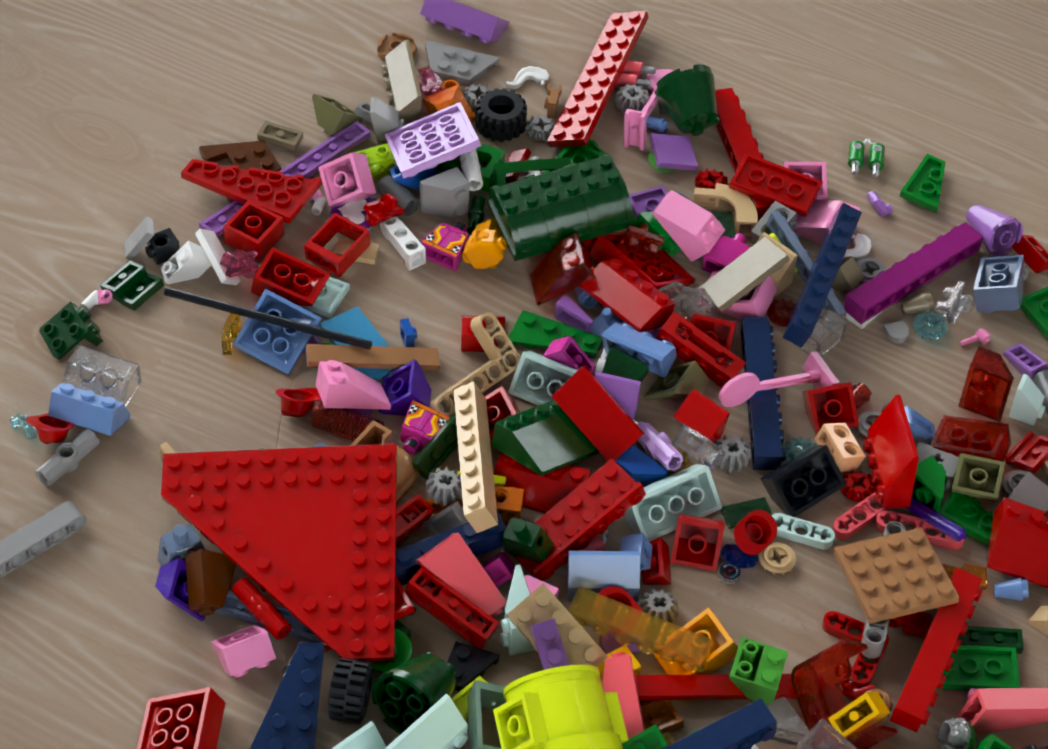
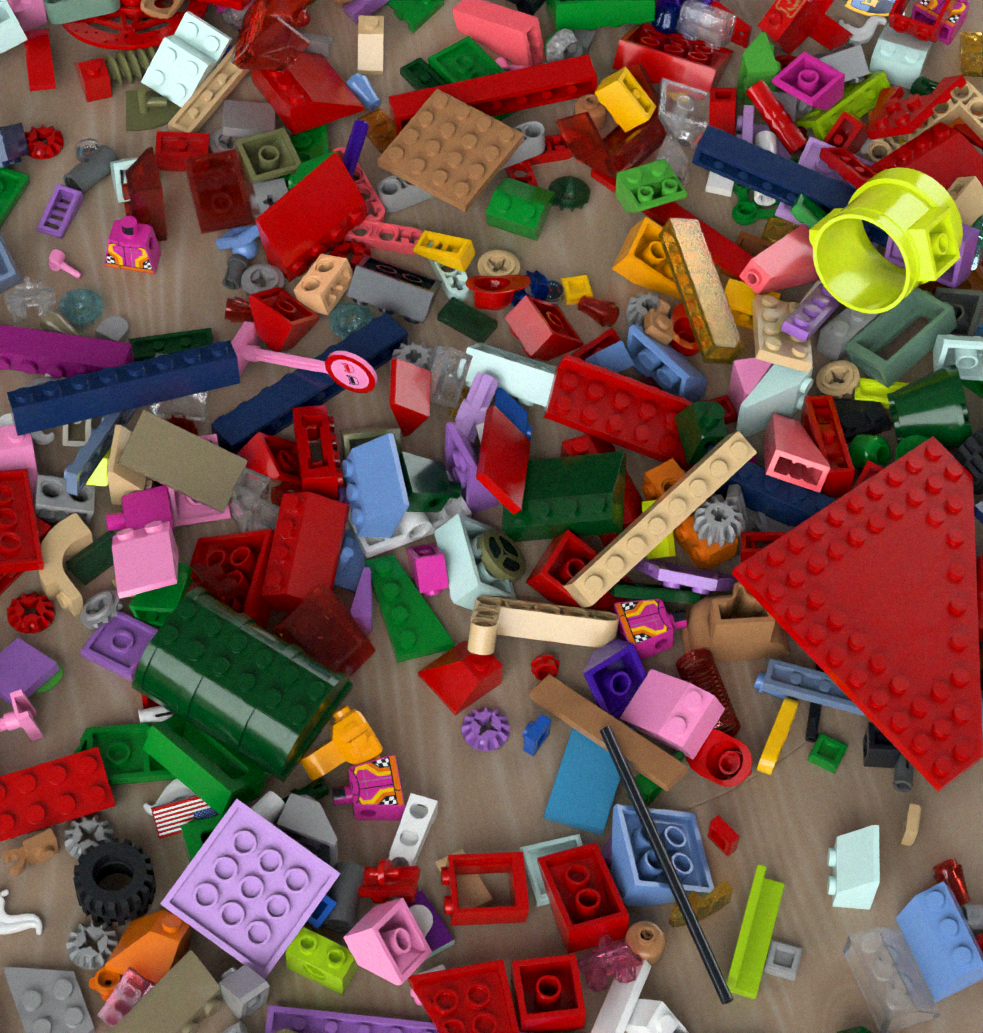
camera: 130 degrees left, 5 degrees up
(119, 451) = (953, 876): none -> clear red cone
(165, 348) = (783, 960): none -> light grey tile
(171, 406) = (854, 868): none -> light aqua slope
(192, 343) = (755, 935): none -> lime fence
(236, 289) = (646, 940): none -> medium nougat head
(258, 369) = (723, 836): none -> red tile
(284, 432) = (778, 736): none -> yellow beam
(426, 461) = (677, 575): none -> medium lavender wing
(428, 639) = (870, 448): none -> green head
(431, 325) = (490, 739): none -> medium lavender gear
(447, 370) = (544, 665): none -> red plate
(495, 668) = (841, 370): none -> tan gear
(537, 389) = (501, 555): none -> olive tile
(631, 578) = (658, 324): none -> medium nougat plate
(687, 584) = (601, 311): none -> clear red cone
(719, 591) = (575, 288): none -> yellow tile
(801, 536) = (458, 259): none -> yellow slope
(801, 641) = (570, 185): none -> clear green gear
(816, 596) = (519, 208): none -> green slope
(858, 352) = (170, 343): none -> dark green tile
(956, 365) = (132, 246): none -> dark pink torso

